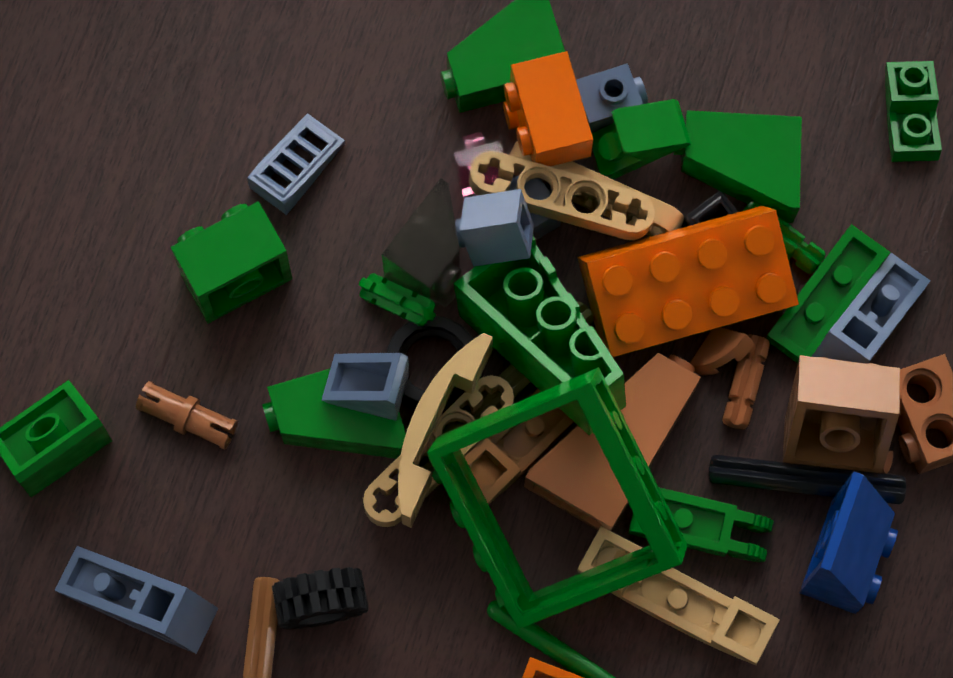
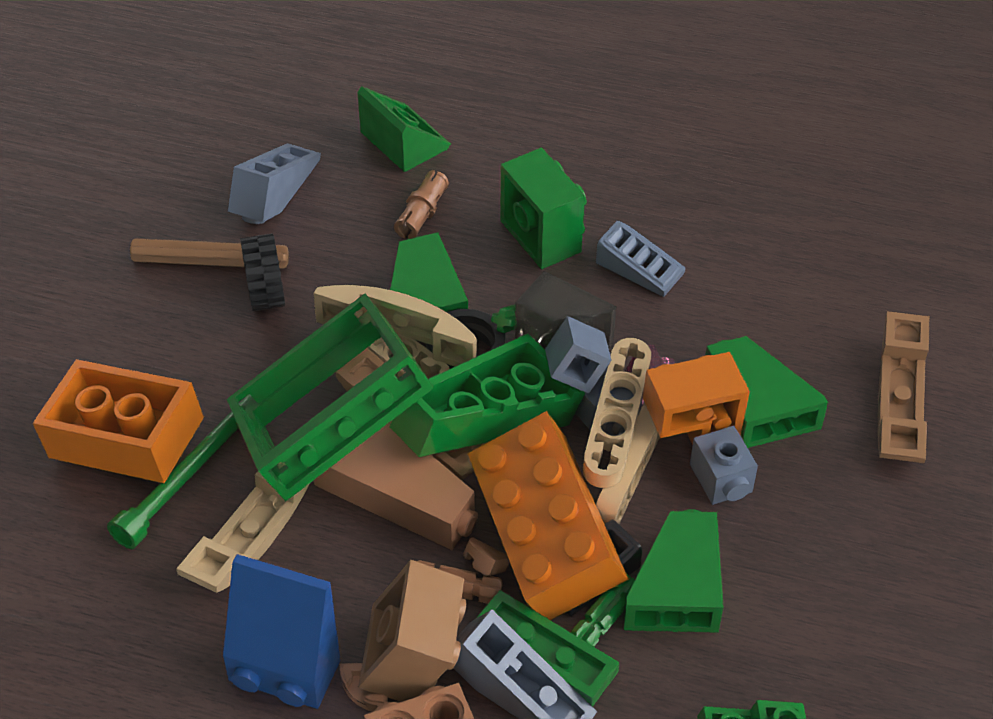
camera: 90 degrees right, 25 degrees down
(368, 382) = (435, 283): sand blue slope -> none
(639, 137) = (687, 476): green slope -> none
(709, 525) = (321, 531): green hinge -> none
(798, 477) = (355, 628): black axle -> none

